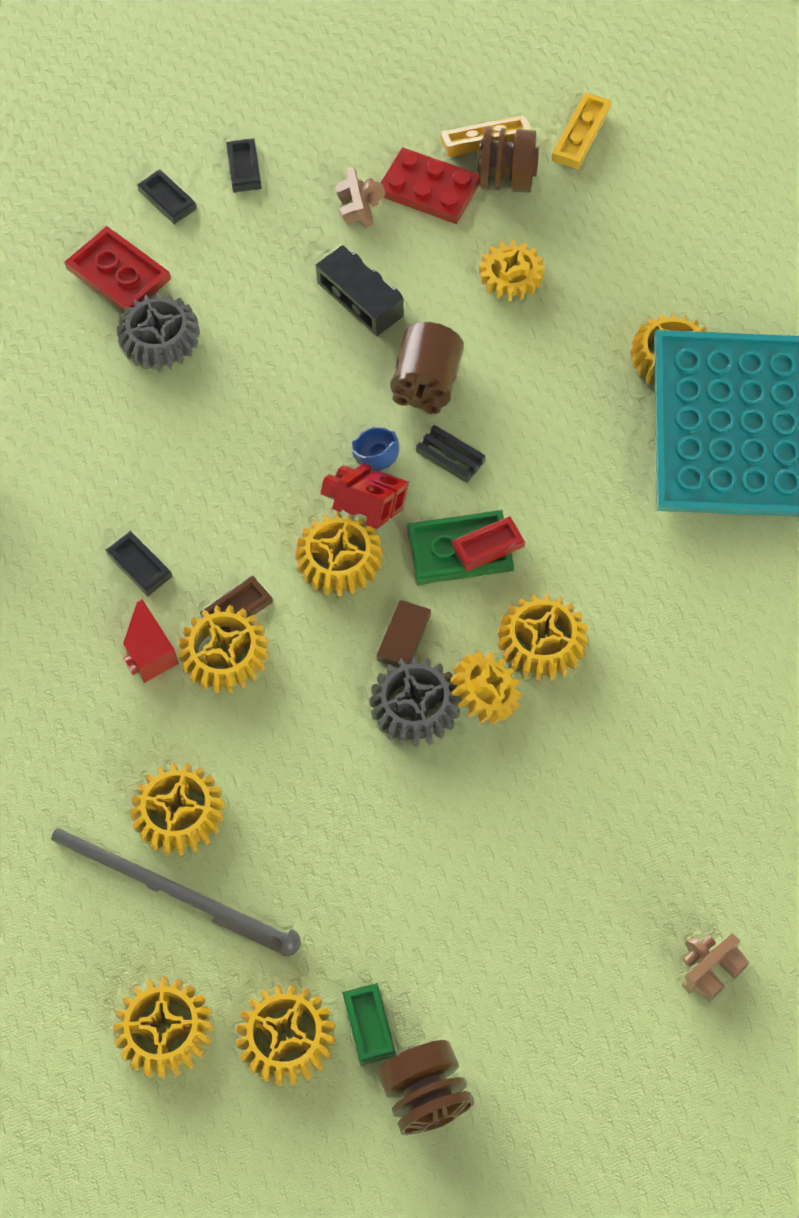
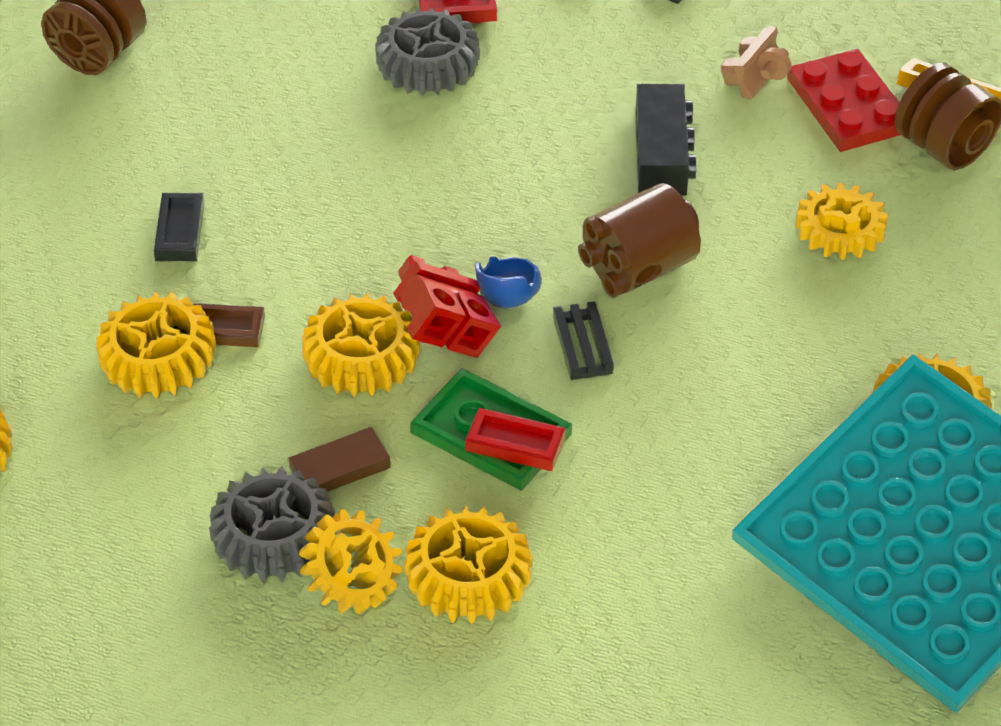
camera: 40 degrees right, 15 degrees down
(147, 645) = (95, 289): red slope -> none

